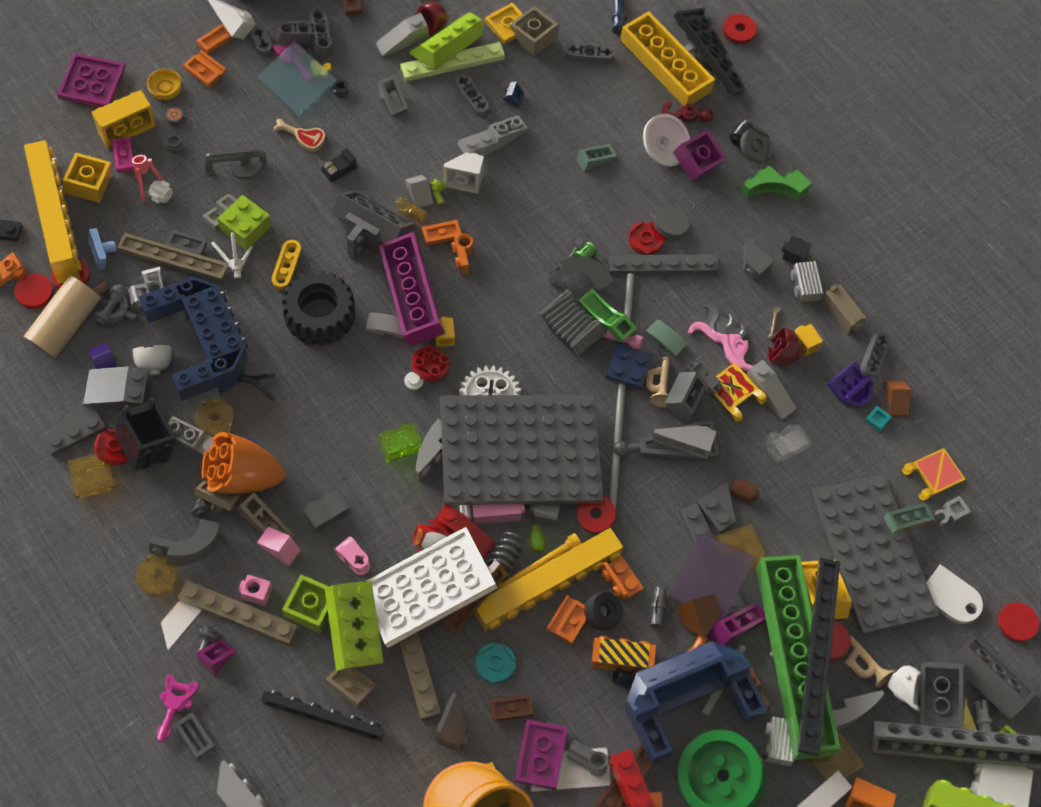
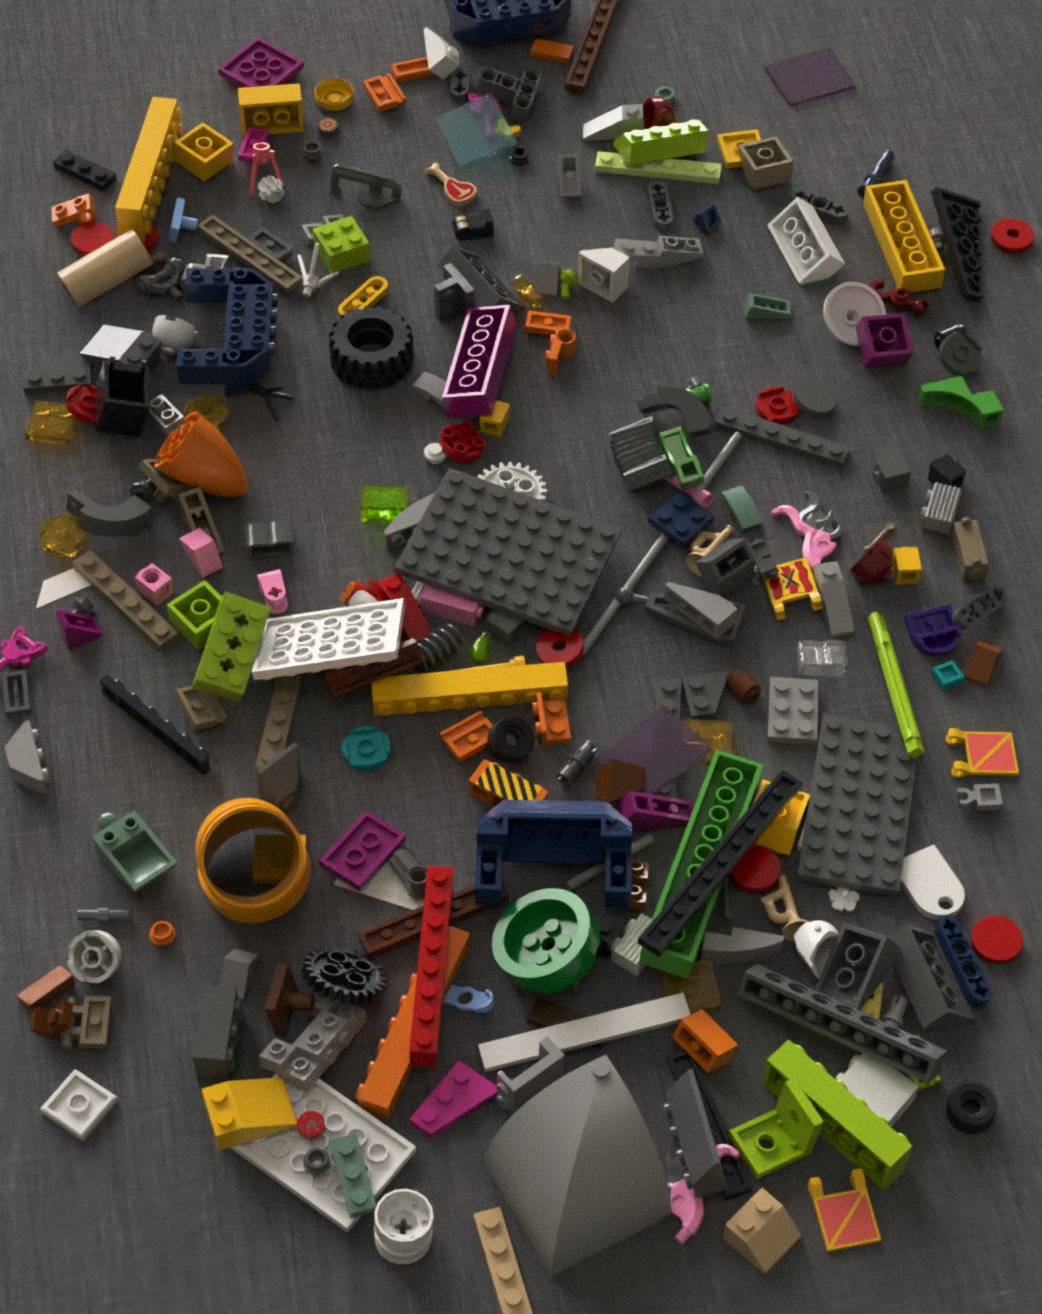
camera: 30 degrees right, 10 degrees down
(102, 357) = (124, 316): dark purple brick -> none
(511, 708) = (357, 794): reddish brown plate -> none
(597, 90) = (805, 243): none -> white slope
(787, 495) = (793, 711): none -> light grey plate
(852, 445) = (896, 685): none -> lime piece
(900, 635) = (843, 899): none -> white plant
(908, 517) = (920, 779): sand green plate -> none
(1004, 653) = (958, 962): none -> dark blue beam

